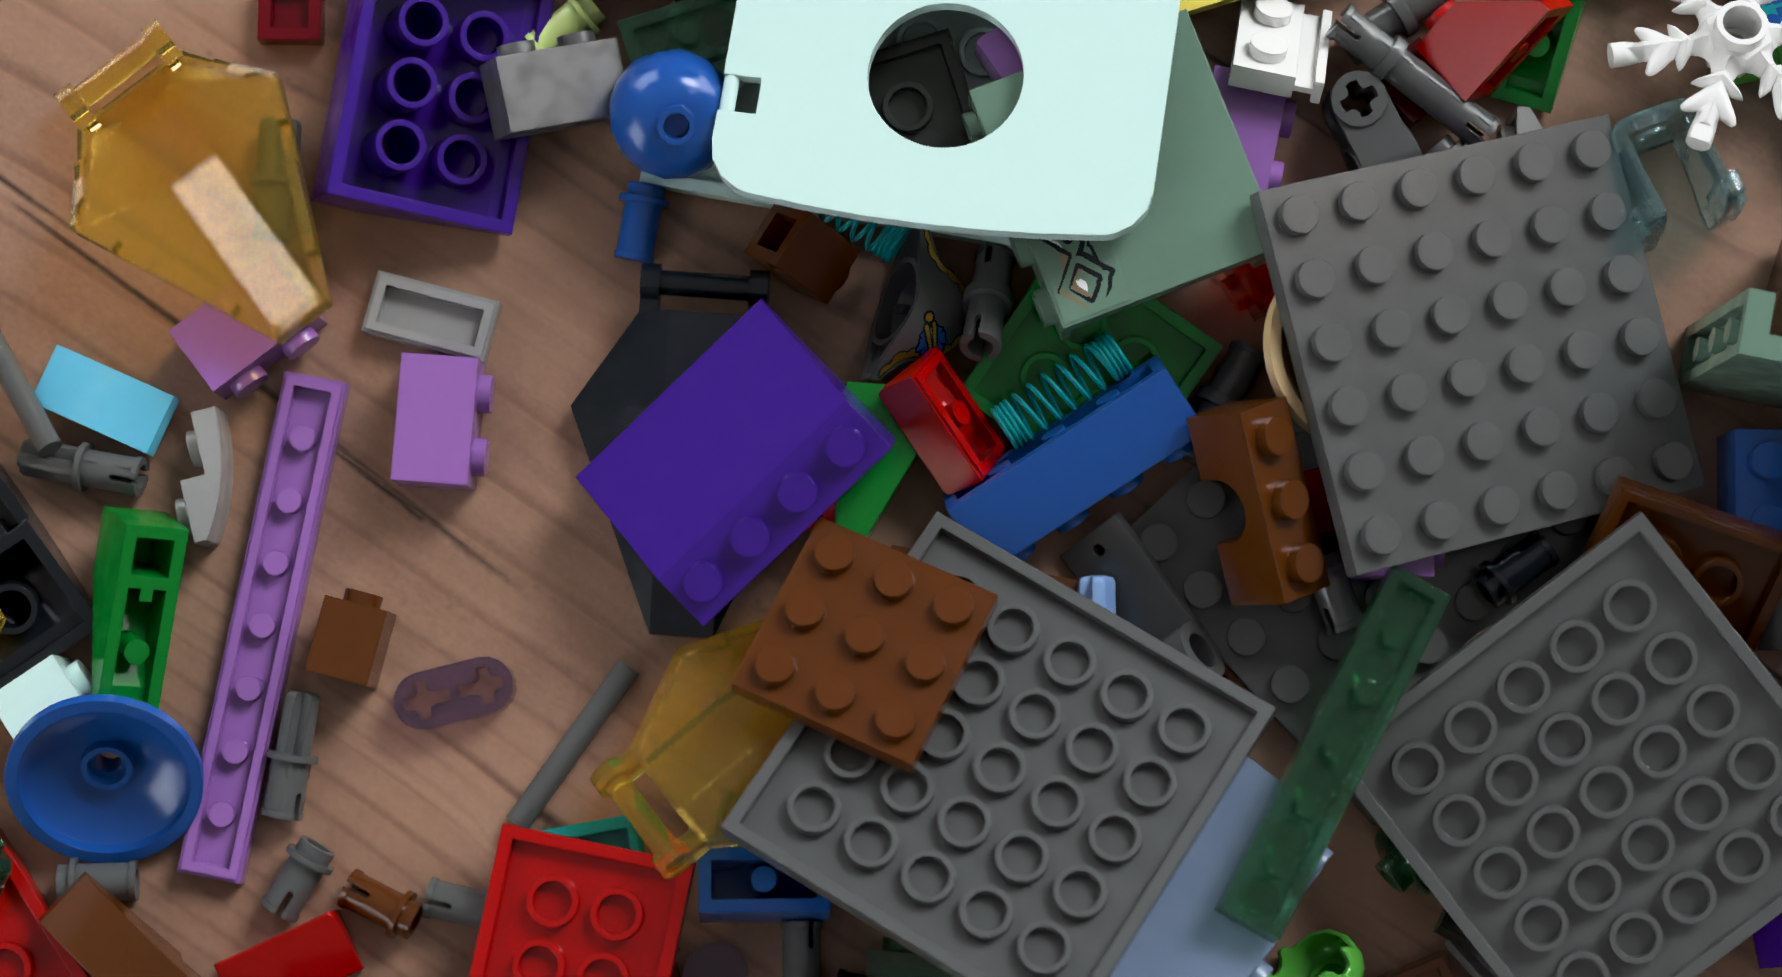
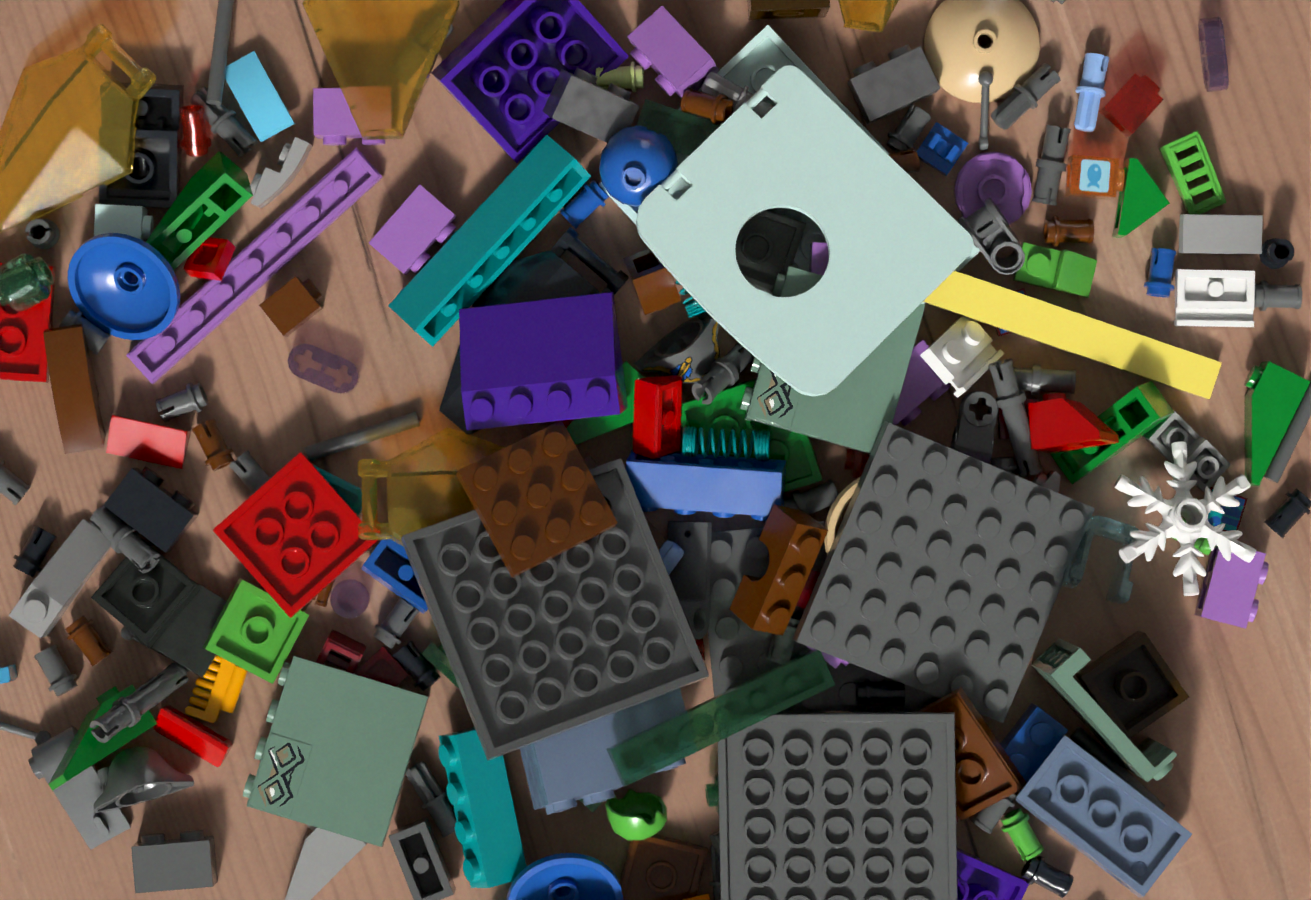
camera: 35 degrees right, 5 degrees up
(52, 505) = (194, 131): none -> clear red pin
(196, 659) = (210, 259): none -> red plate
(292, 757) = (221, 341): dark grey axle -> none
(431, 317) = (447, 174): light grey tile -> none
(549, 358) = (489, 240): none -> teal brick

